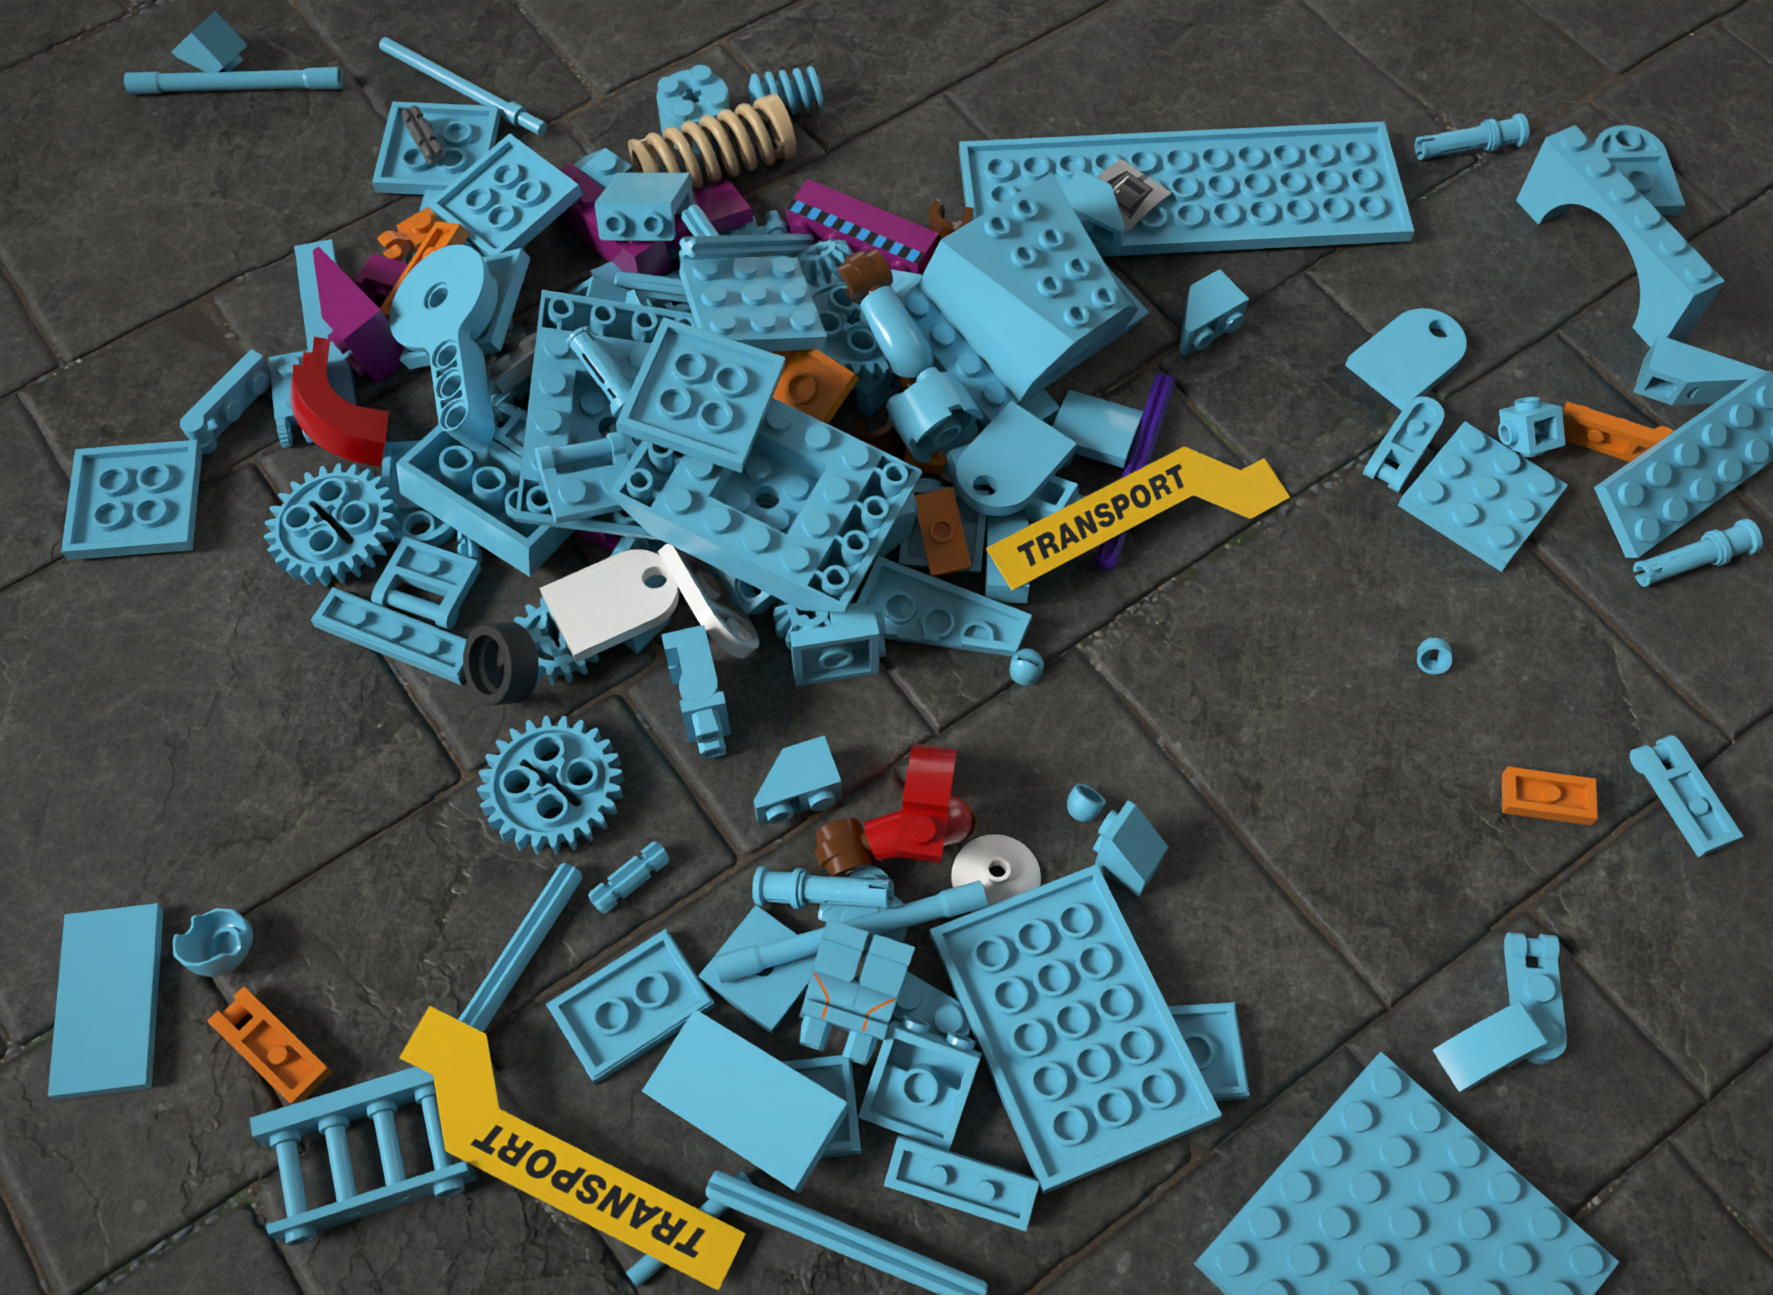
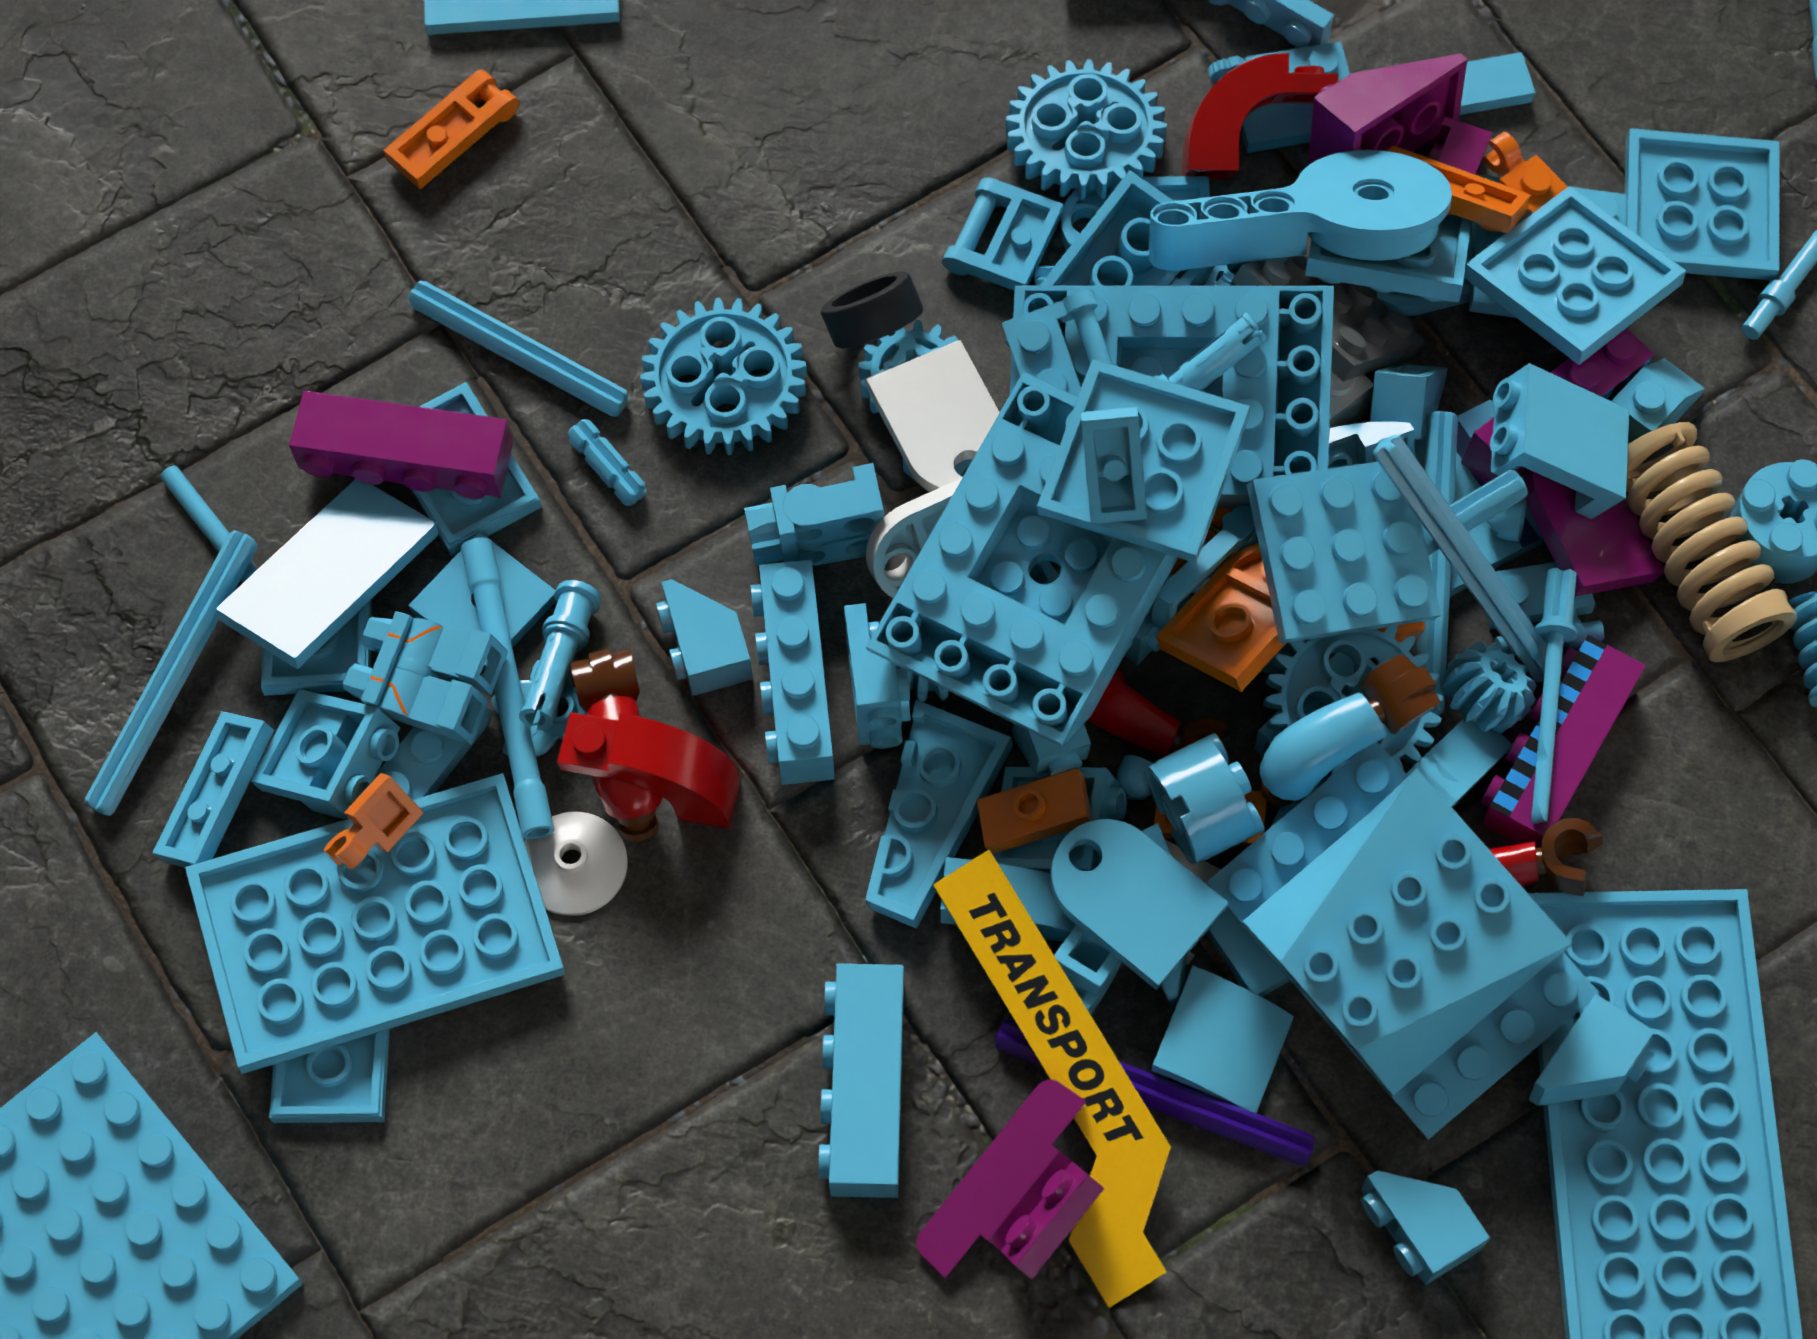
camera: 95 degrees right, 5 degrees up
(214, 943) = (563, 64): medium azure hair -> none
(331, 1116) = (374, 231): medium azure fence -> none
(392, 634) = (940, 205): medium azure tile -> none
(423, 135) = (1708, 178): dark grey axle -> none
(554, 1169) = (277, 387): yellow sticker -> none
(619, 1044) = (401, 445): none -> magenta brick
(719, 396) = (1114, 465): none -> medium azure slope
(781, 222) = (1556, 630): none -> medium azure piece
(828, 707) = (796, 672): none -> medium azure brick
(993, 1017) = (379, 820): none -> orange plate
(1026, 672) = (862, 925): medium azure hinge -> none
(1084, 803) = (653, 968): medium azure hinge -> none
(1129, 849) = (572, 1002): medium azure slope -> none
(1133, 192) = (1650, 1126): sticker -> none
(1157, 644) = (865, 1081): none -> medium azure brick
(1229, 539) = (1018, 1192): none -> magenta plate

